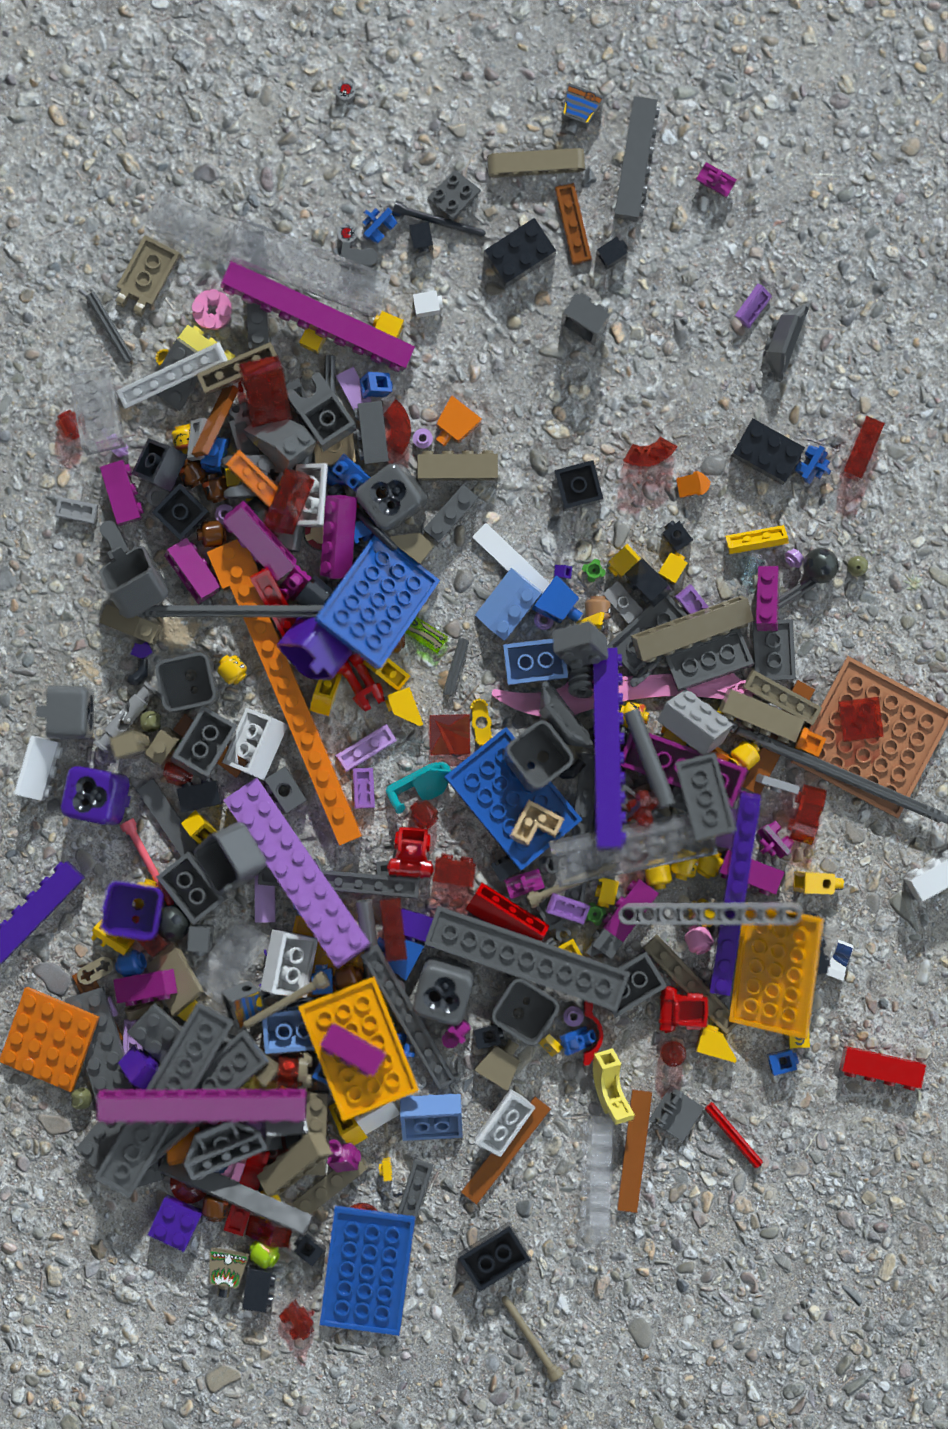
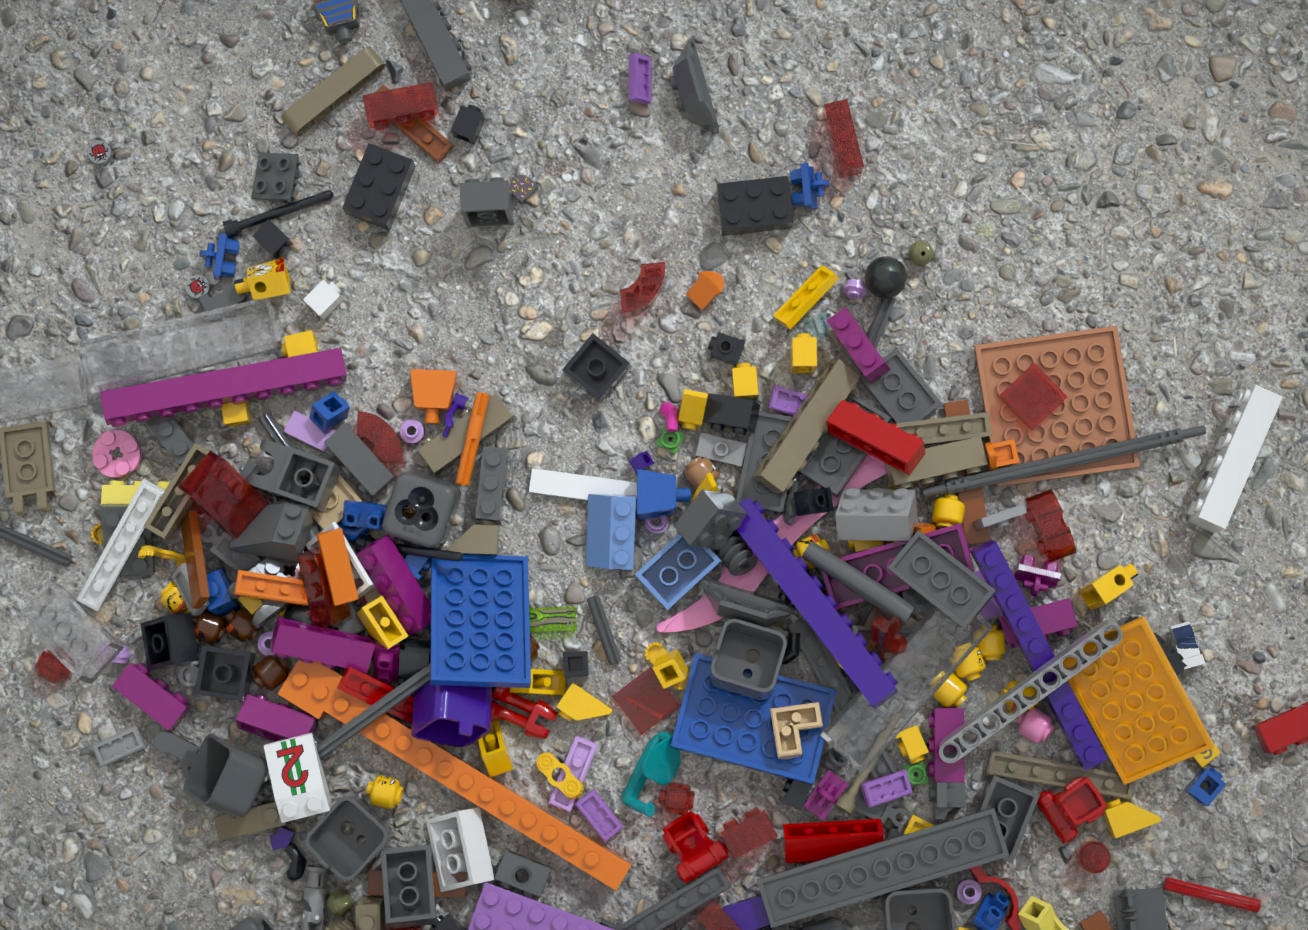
camera: 35 degrees left, 5 degrees down
(181, 618) = (297, 778): none -> white slope
(191, 395) = (165, 554): none -> yellow piece
(307, 495) = (337, 566): none -> orange tile
(310, 555) = (382, 623): none -> yellow slope
(358, 754) = (570, 785): none -> yellow piece
(397, 263) = (265, 280): none -> yellow torso
(420, 676) = (575, 664): none -> black brick
(460, 473) = (472, 439): none -> orange axle
(468, 441) = (458, 402): none -> dark purple piece
(481, 725) = (670, 668): none -> yellow brick
(575, 207) = (401, 105): none -> clear red brick
(606, 553) = (670, 413): none -> dark pink arm
(618, 324) = (522, 187): none -> dark grey tile
(659, 682) = (813, 501): none -> black brick
(725, 577) = (803, 354): none -> yellow brick
(733, 669) = (876, 437): none -> red brick

